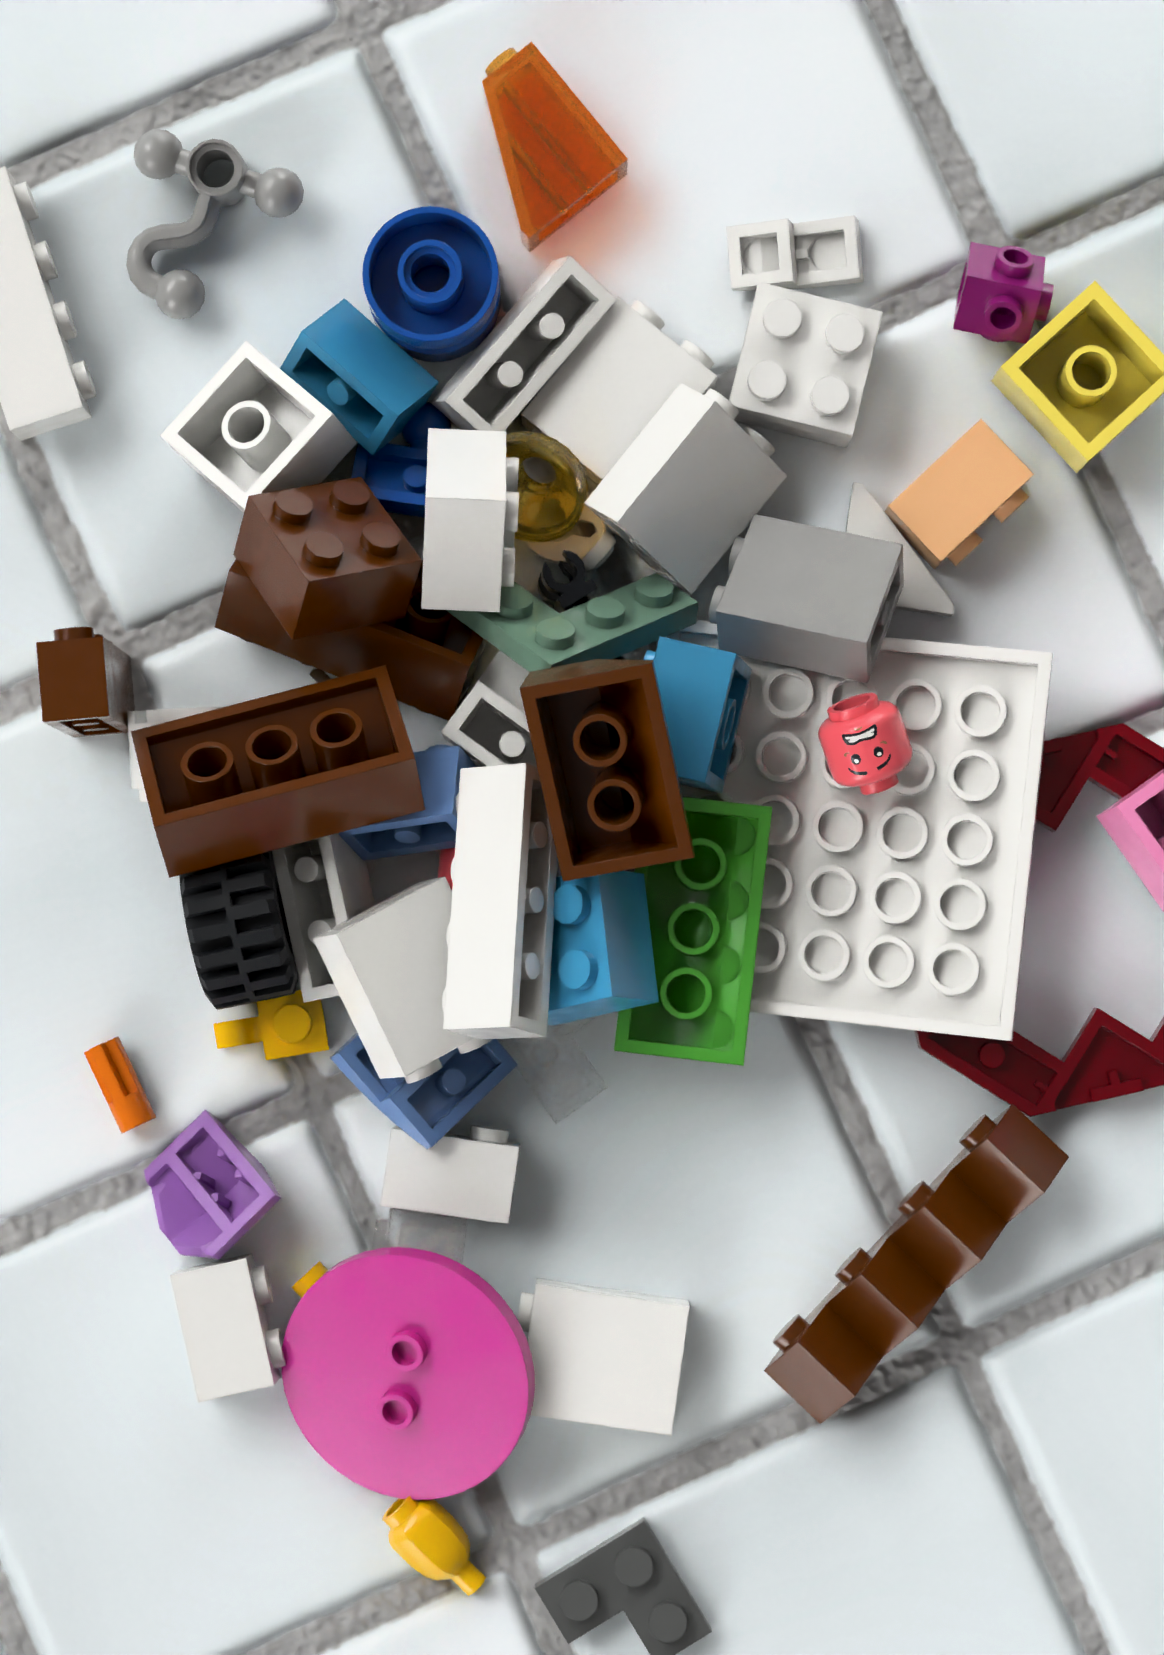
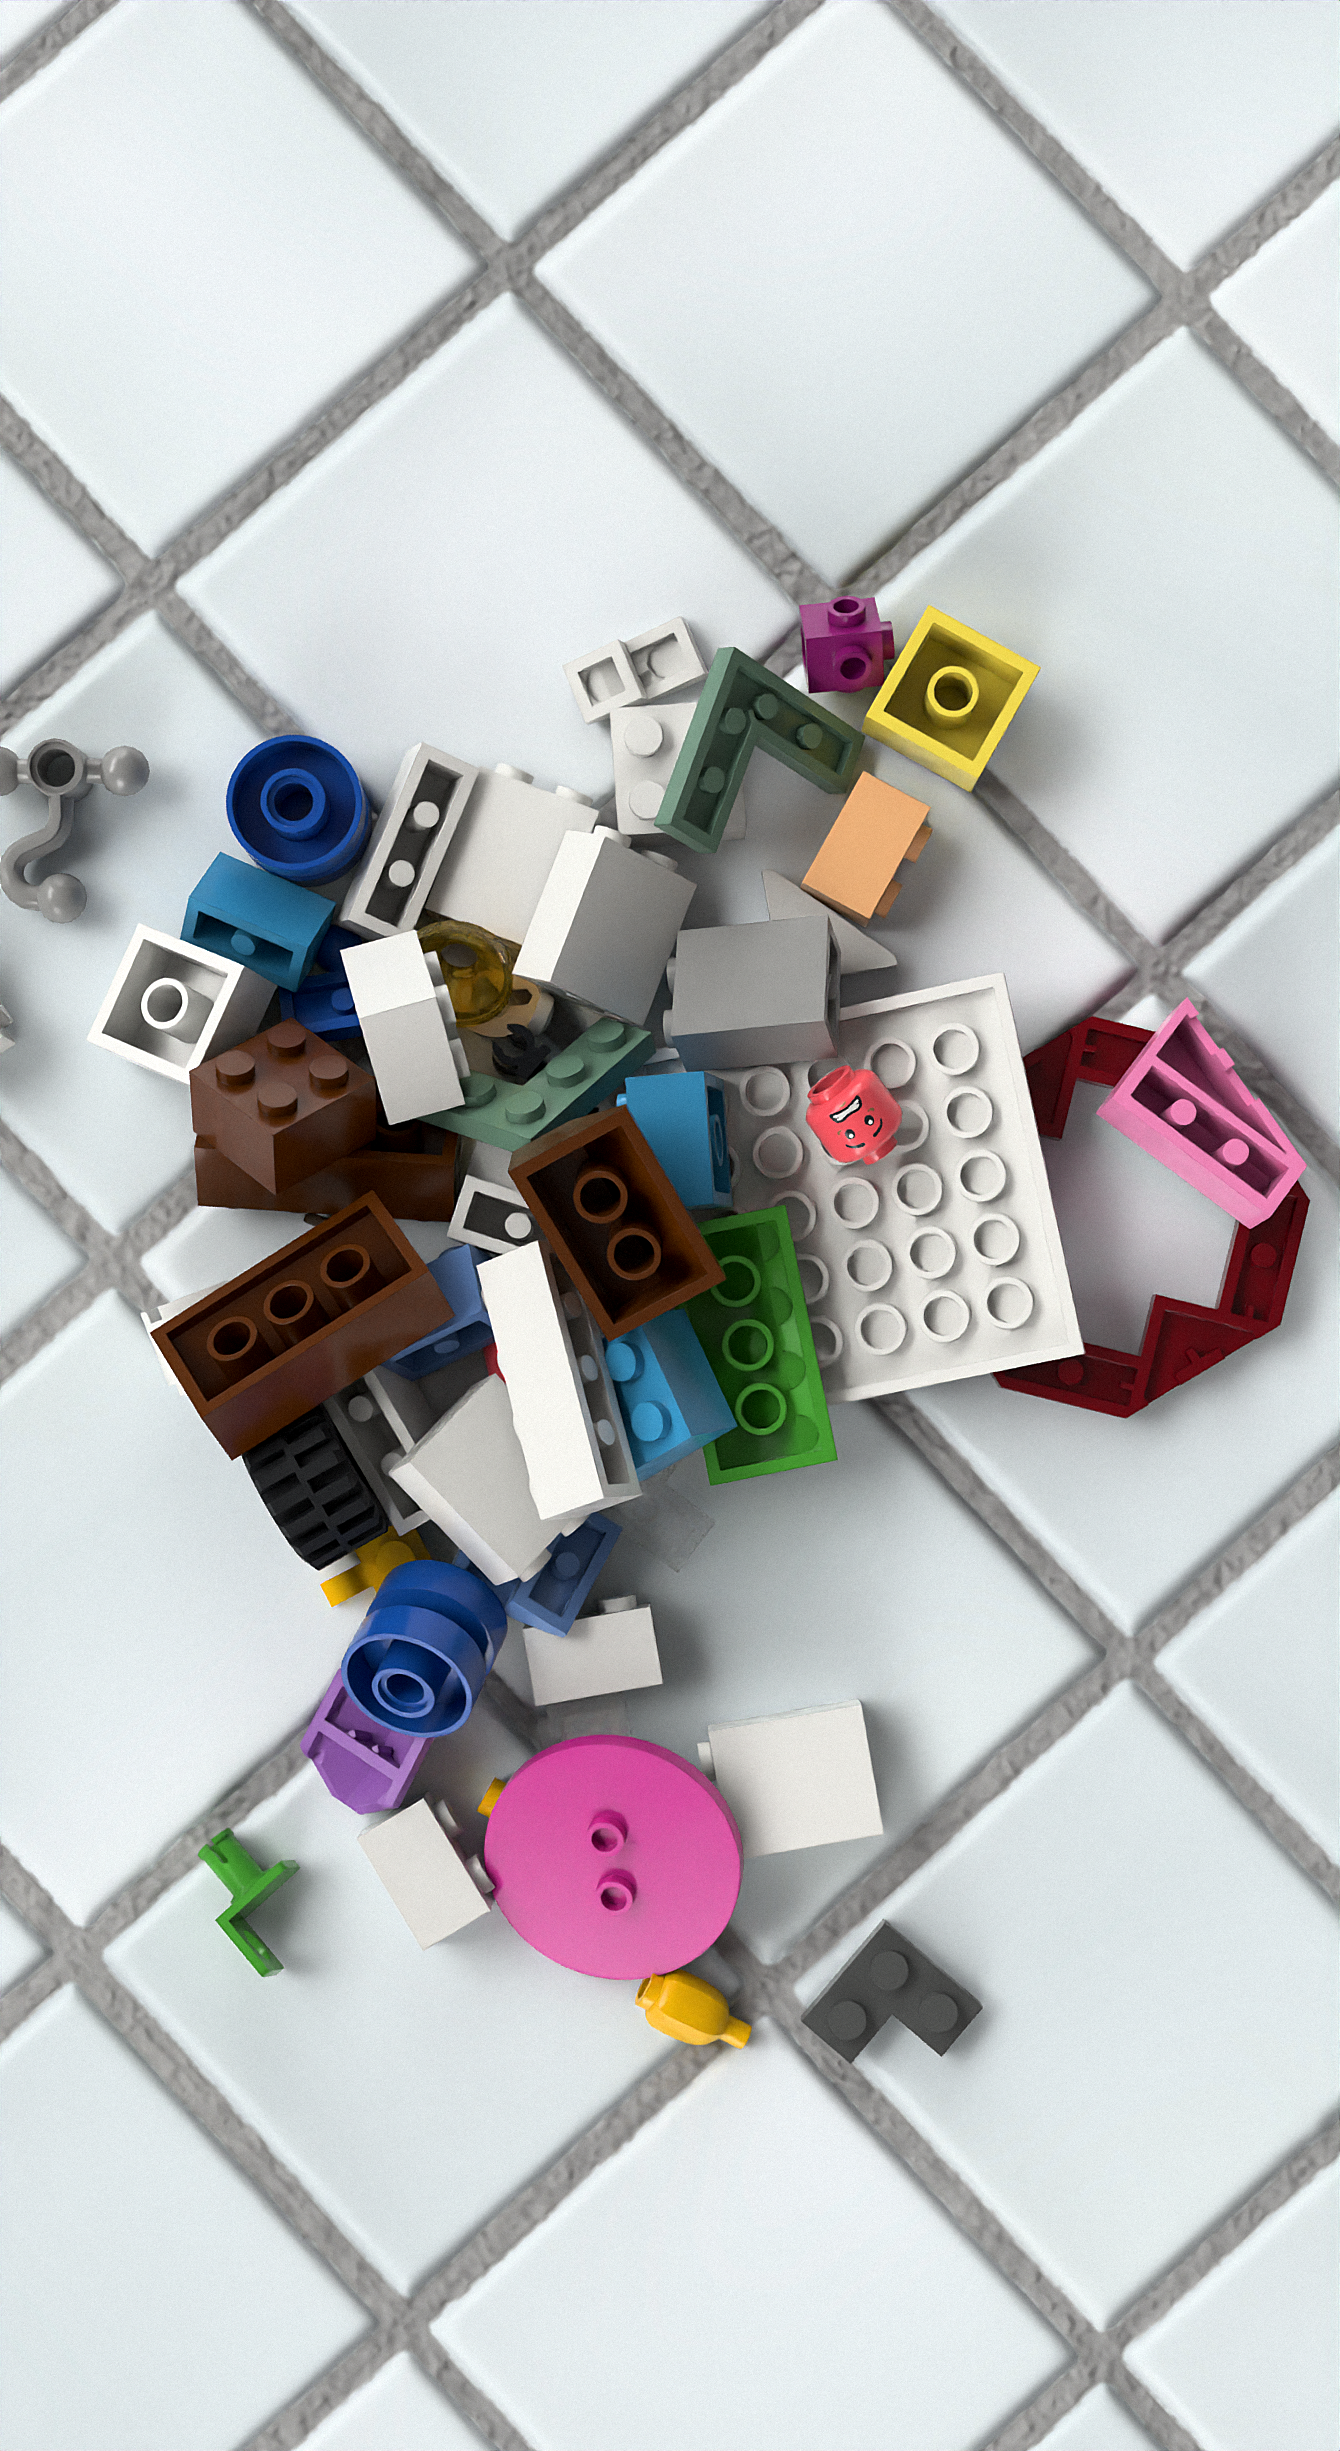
camera: 20 degrees left, 0 degrees up
(53, 1291) = (250, 1889): none -> bright green bracket
(84, 683) = (90, 1300): reddish brown brick -> none
(120, 1084) = (250, 1671): orange piece -> none
(293, 1116) = (424, 1648): none -> blue wheel
(547, 144) = (365, 641): clear orange slope -> none
(880, 323) = (736, 711): none -> sand green plate
(903, 1275) = (1056, 1604): reddish brown brick -> none

